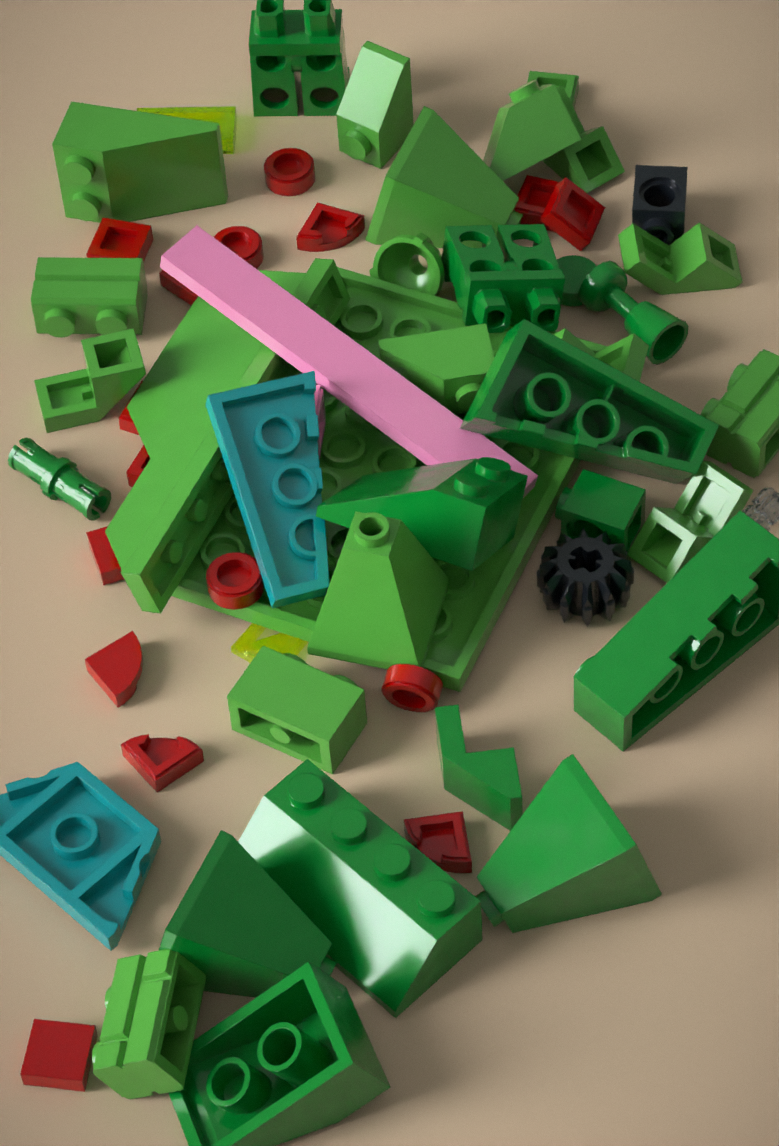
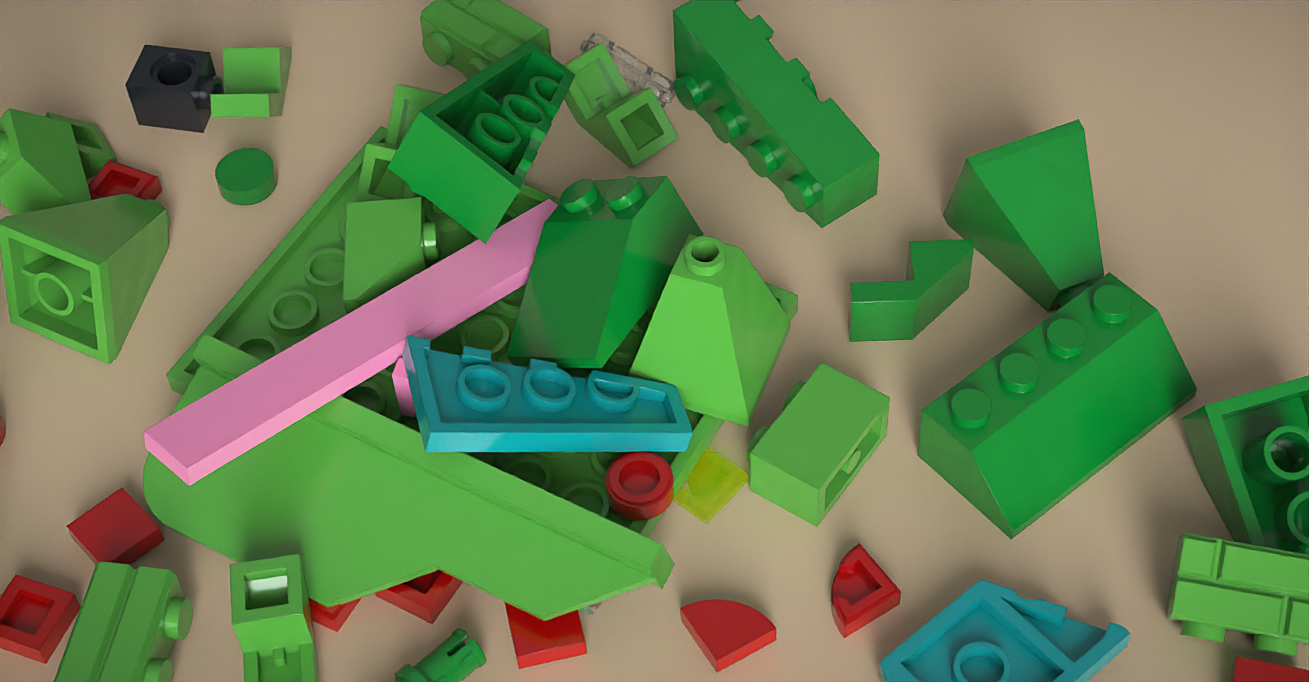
camera: 85 degrees left, 0 degrees up
(242, 925) = (1120, 511): green slope -> none
(243, 242) = (81, 486): red tile -> none
(329, 229) = (80, 395): red tile -> none
(399, 263) = (203, 292): bright green piece -> none
(412, 688) = (799, 341): red tile -> none
(441, 840) = (985, 335): red tile -> none
(503, 279) = (253, 206): green hips -> none
(572, 214) = (155, 161): red tile -> none
(585, 577) = (690, 172): black gear -> none
(602, 506) = (595, 153): green brick -> none
(659, 329) = (340, 112): green piece -> none

